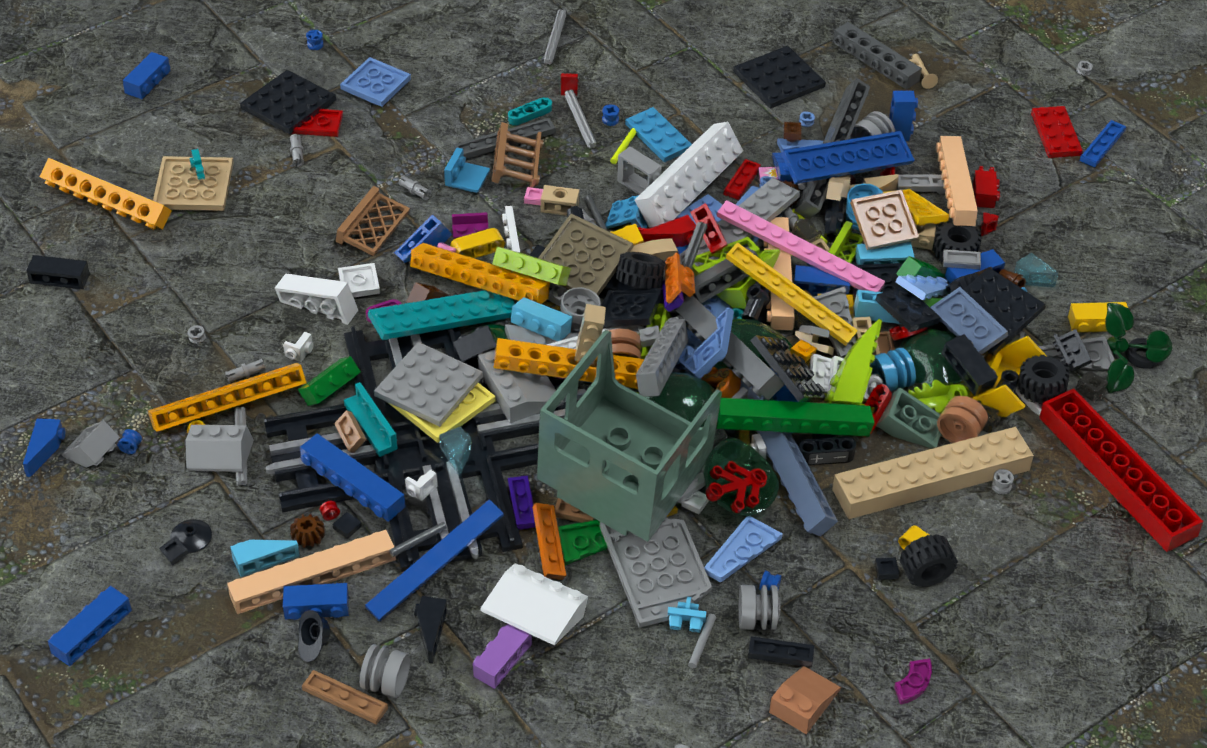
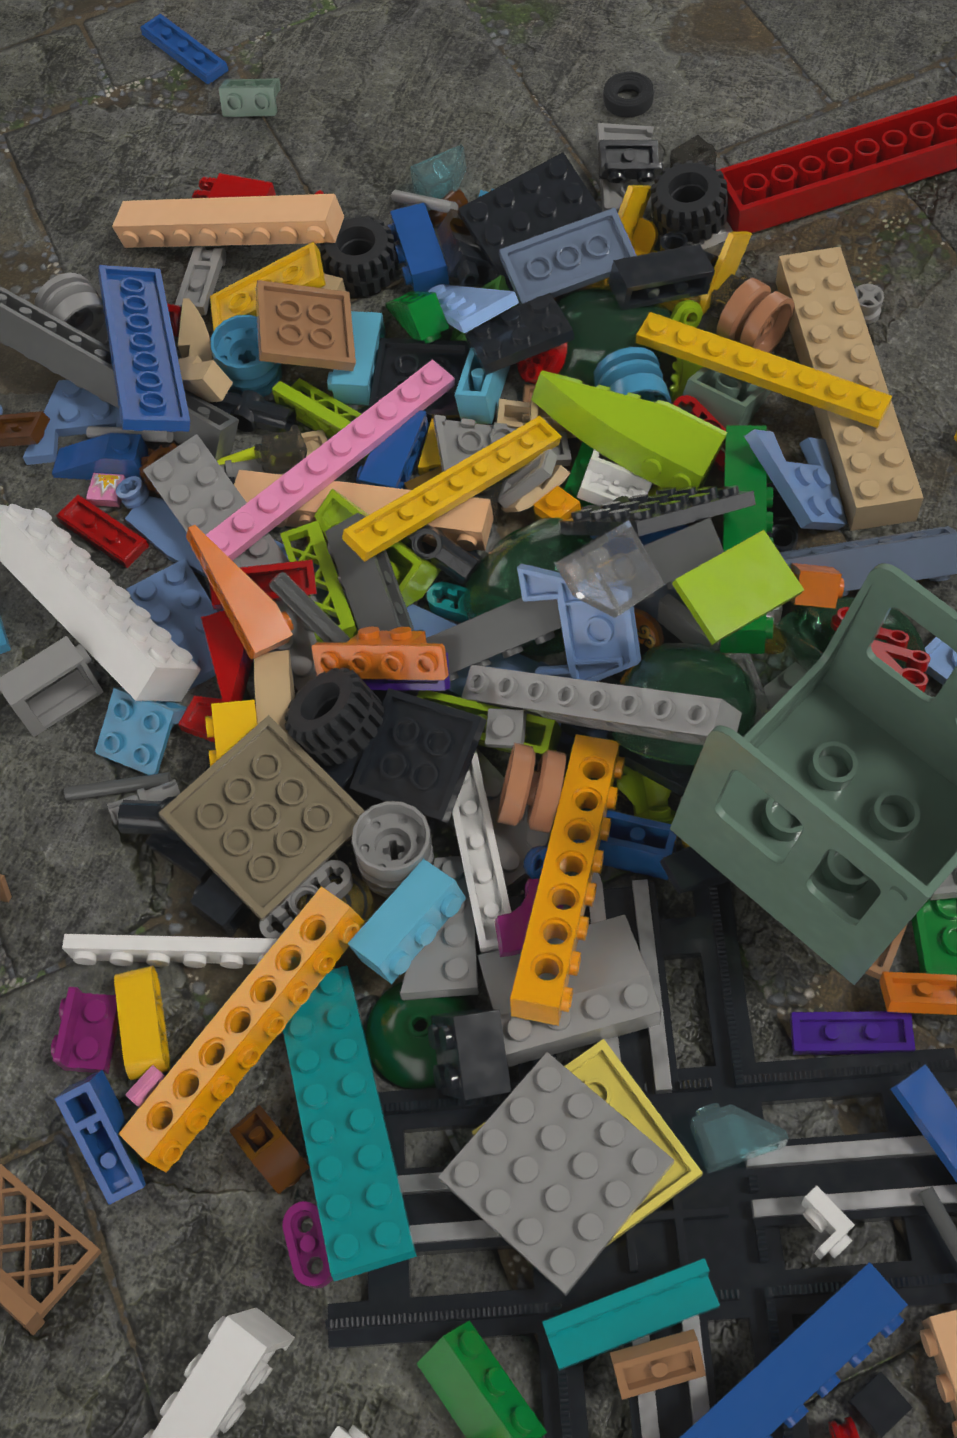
camera: 70 degrees left, 15 degrees up
(361, 279) = (178, 1293): white plate -> none
(531, 266) = (274, 913): lime brick -> none
(533, 196) = (30, 893): bright pink tile -> none
(558, 199) = (68, 862): tan brick -> none
(590, 329) = (560, 810): tan brick -> none
(683, 227) = (248, 607): none -> orange slope
(728, 335) = (611, 571): none -> clear slope
(742, 396) = (737, 587): none -> lime tile
(774, 456) = (820, 584): none -> orange brick
(837, 449) = (806, 488): none -> medium blue wing
(903, 113) = (52, 247): blue brick -> none
(917, 421) = (764, 369): none -> yellow plate
(961, 259) = (407, 251): light grey tile -> none
(1007, 267) = (430, 202): none -> light grey bar
(1056, 132) = (139, 95): red plate -> none
(1071, 176) = (249, 97): none -> sand green bracket
(1084, 64) = (12, 34): light grey bush -> none
(1089, 316) = (553, 121): yellow brick -> none
(1117, 322) = (619, 108): dark green plant -> none

